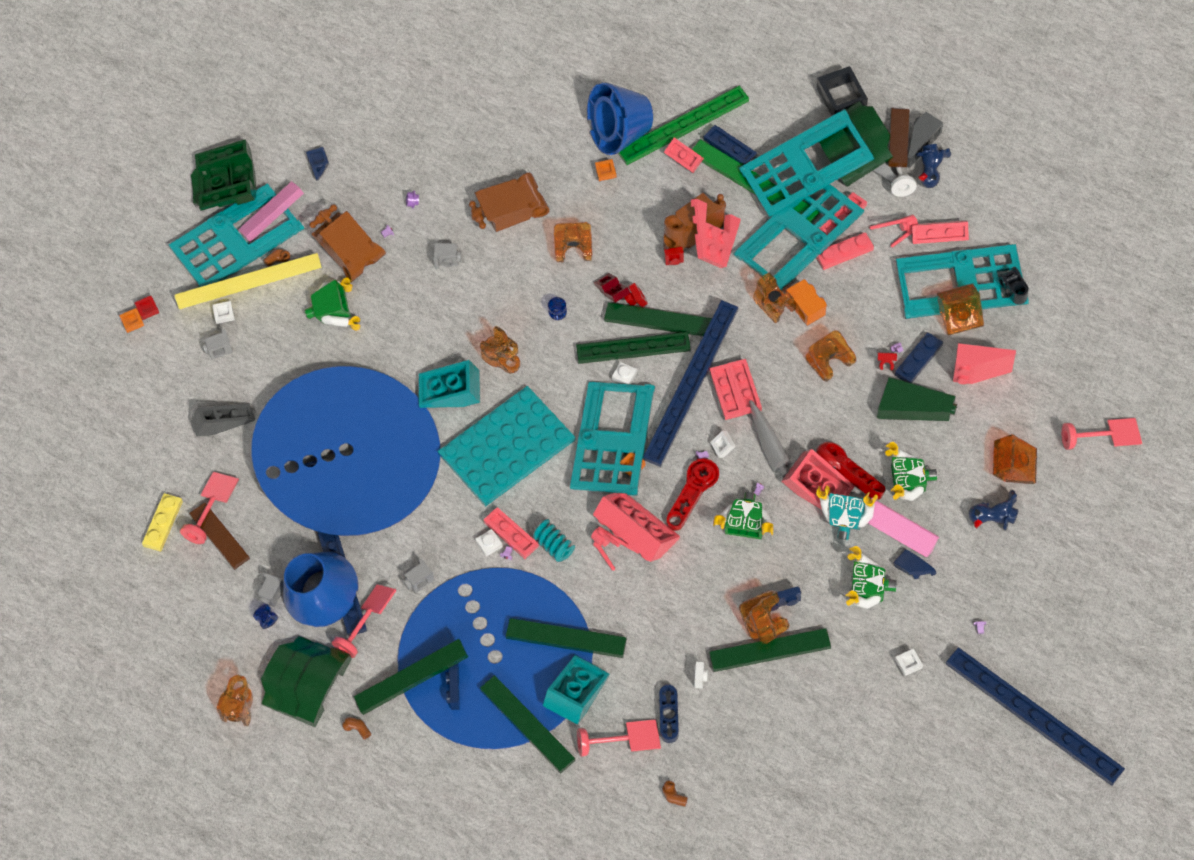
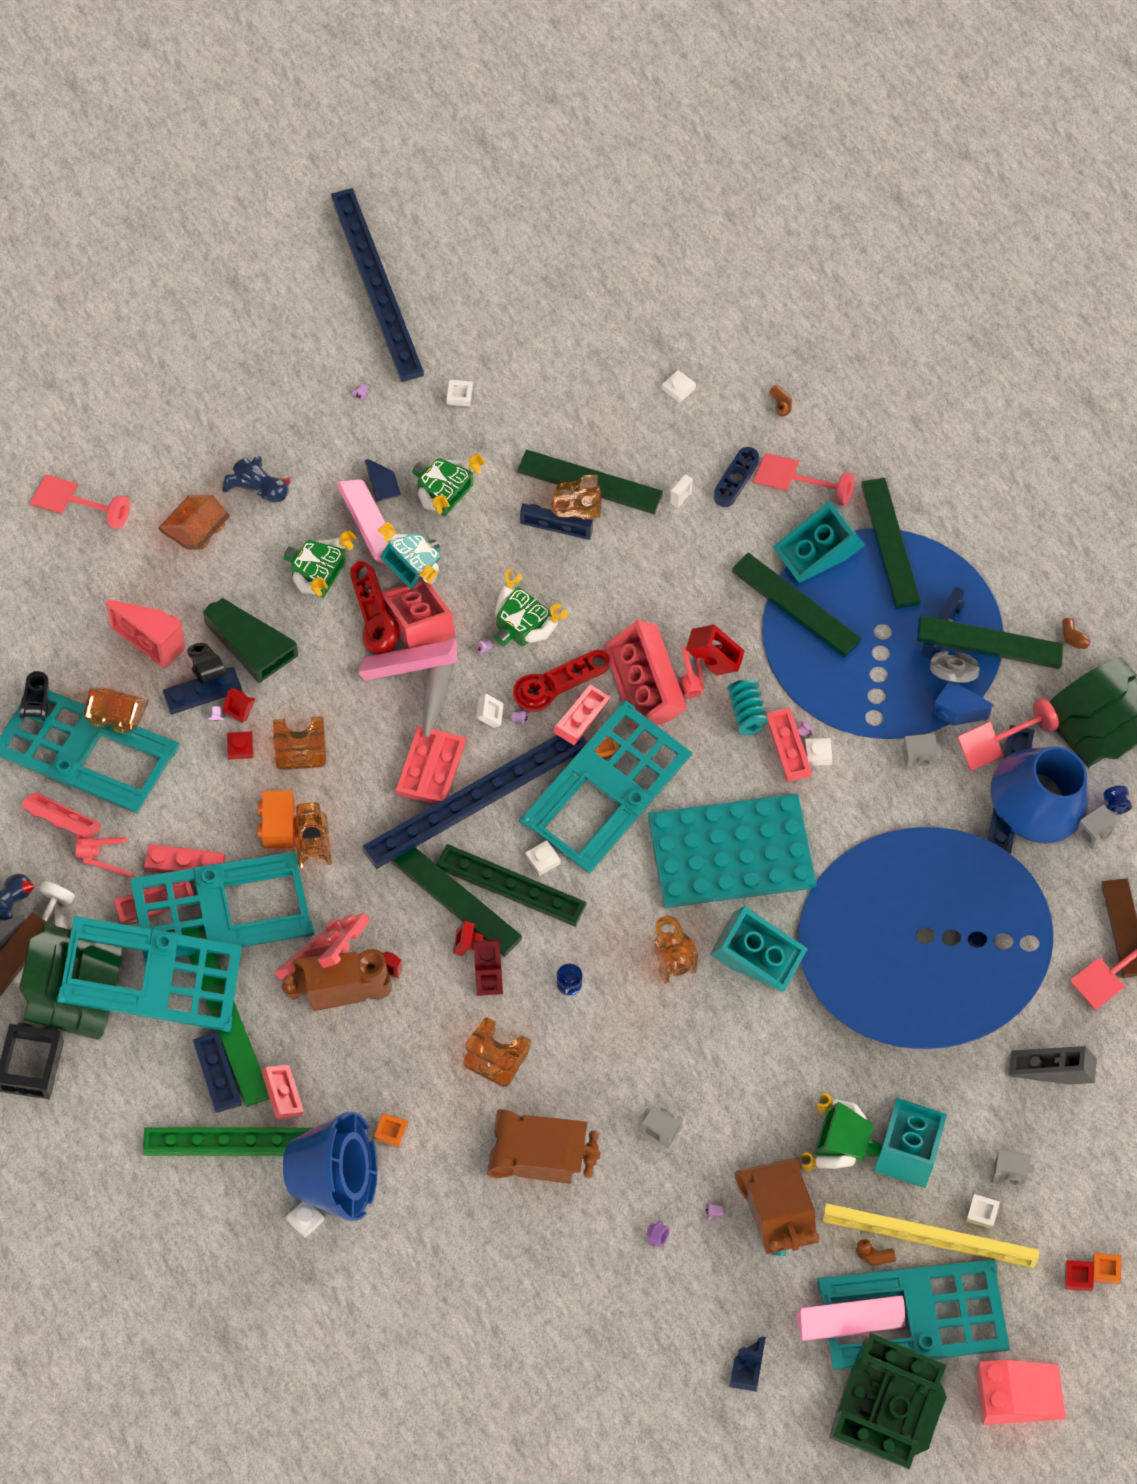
camera: 155 degrees left, 0 degrees up
(151, 227) = (1019, 1392): none -> coral slope
(288, 327) = (911, 1142): none -> teal slope
(408, 622) = (960, 705): none -> blue slope
(424, 642) = (954, 667): none -> light grey tile
(593, 564) = (718, 658): none -> red brick
(658, 469) = (581, 714): none -> coral plate
(757, 764) = (678, 386): none -> white plate
(797, 439) = (409, 660): none -> bright pink slope
(867, 338) = (240, 745): none -> red plate
(926, 364) = (205, 662): none -> black piece

